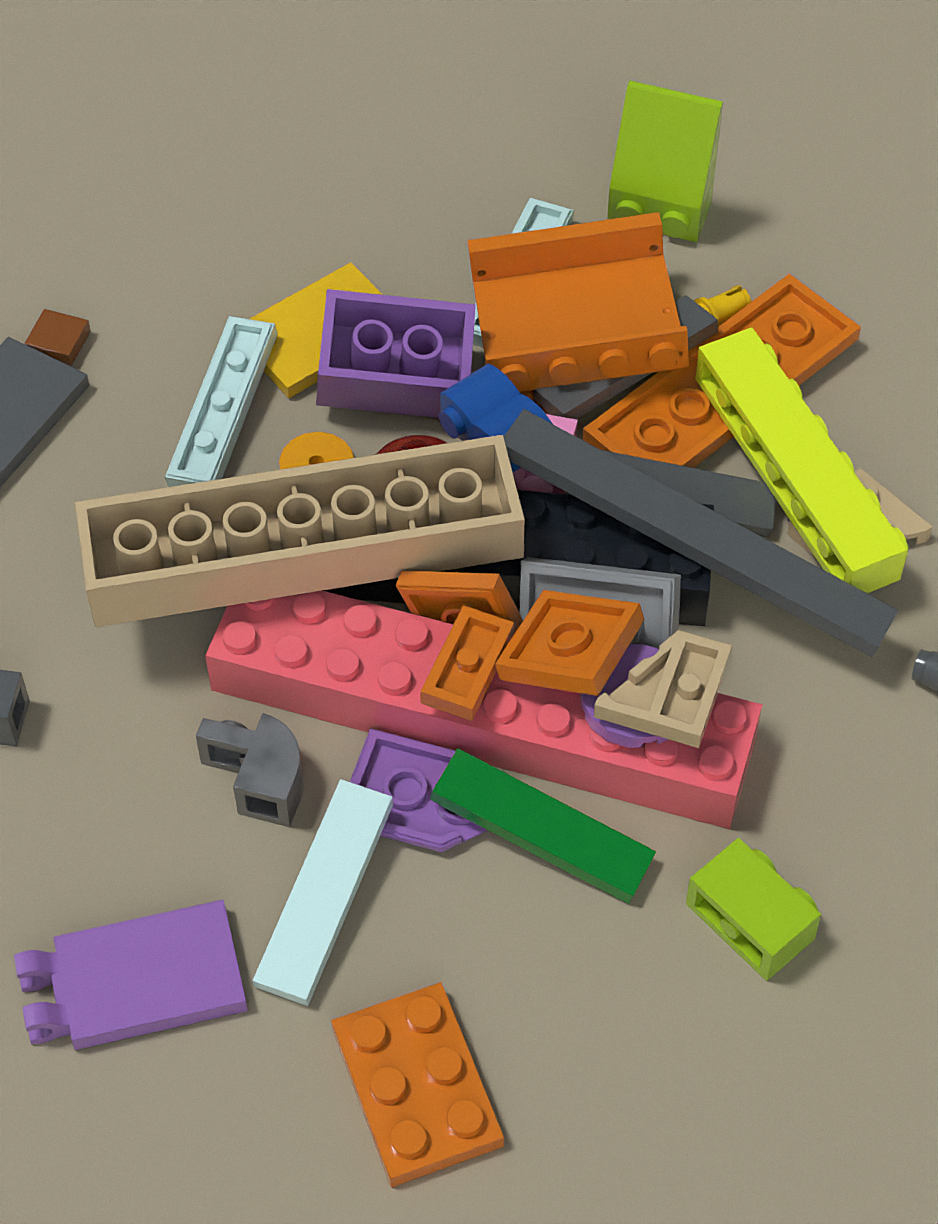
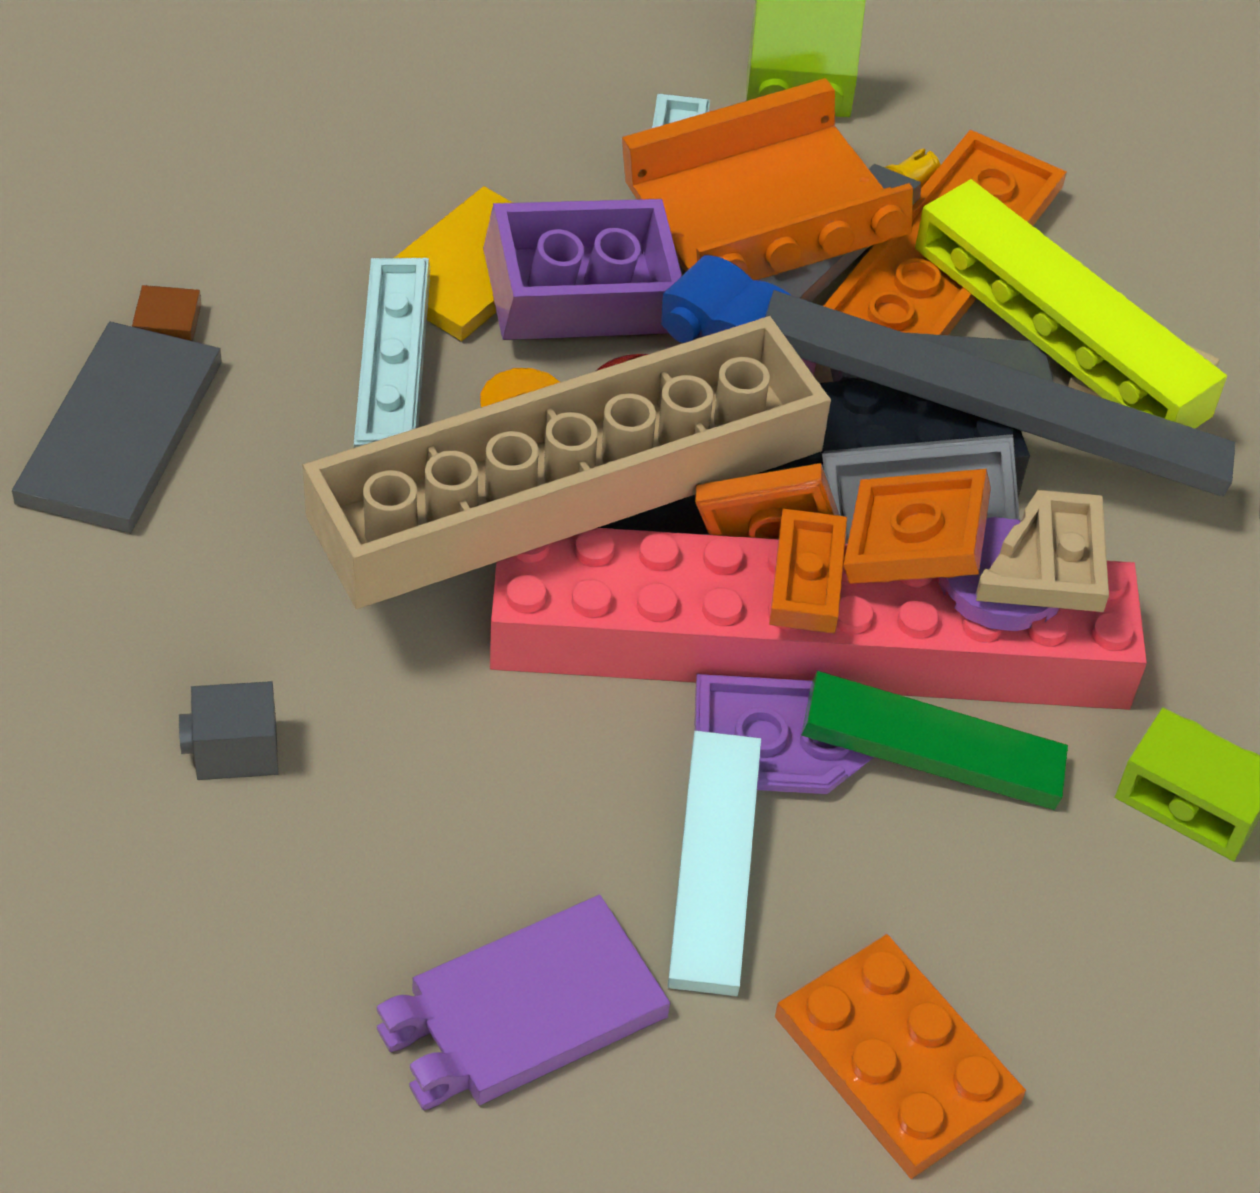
camera: 20 degrees left, 5 degrees down
(266, 765) = (595, 726): flat silver brick -> none

